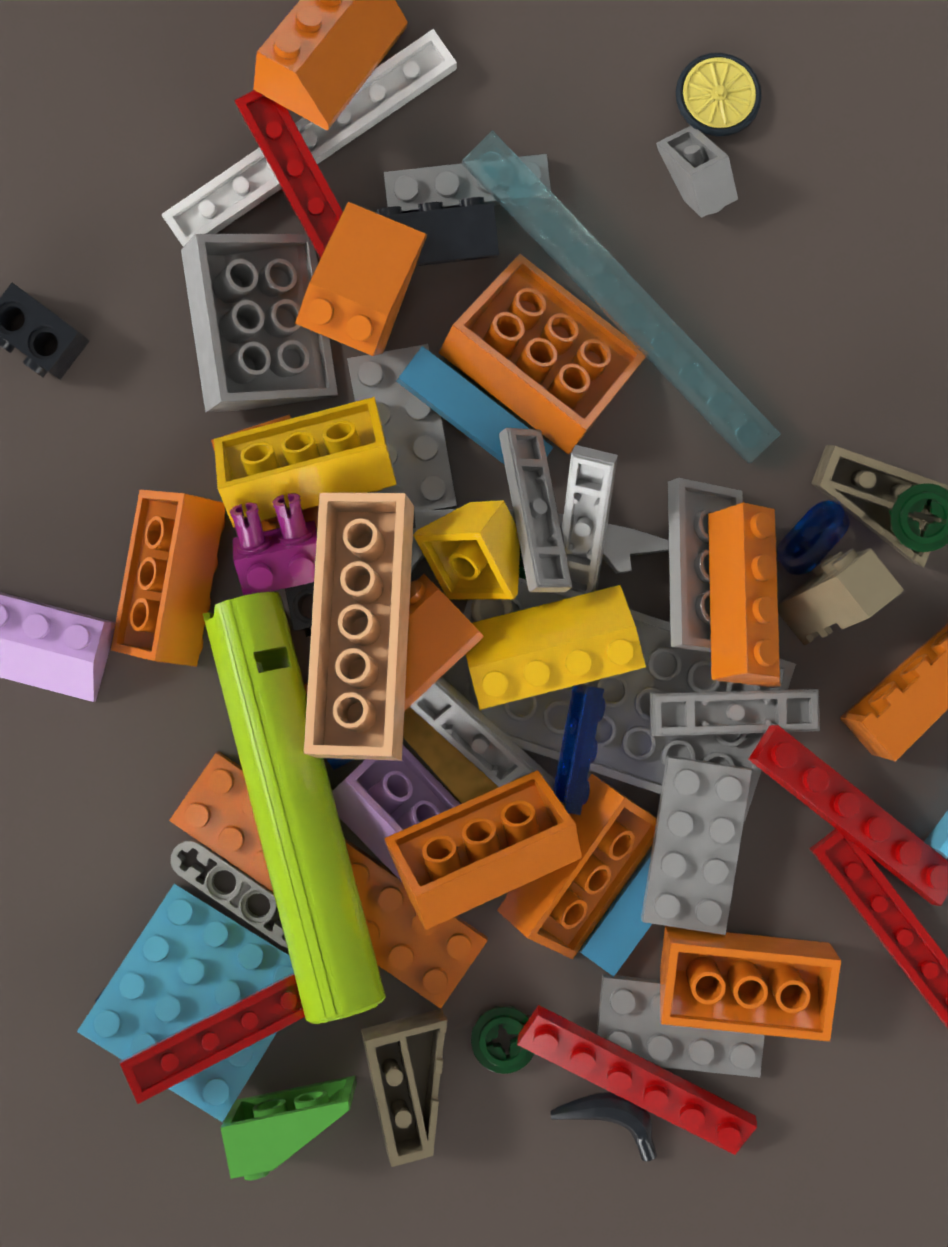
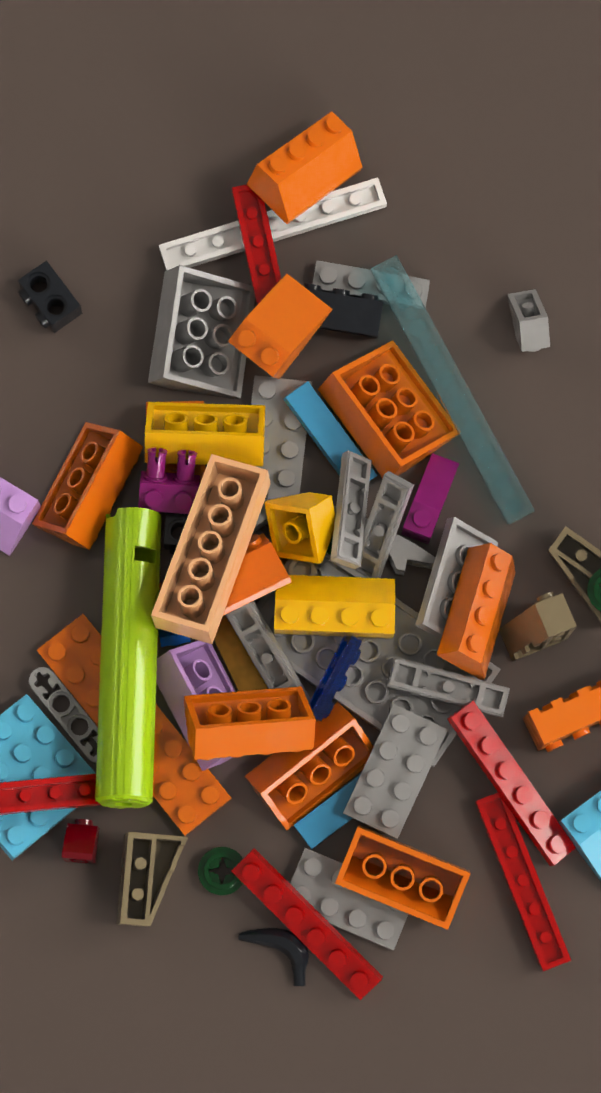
camera: 10 degrees right, 10 degrees down
(275, 1125) = (45, 878): bright green slope -> none
(306, 1067) = (81, 842): none -> dark red slope
(637, 460) = (430, 498): none -> magenta slope
(718, 94) = (558, 274): light yellow wheel -> none
(810, 540) = (541, 582): clear blue plate -> none

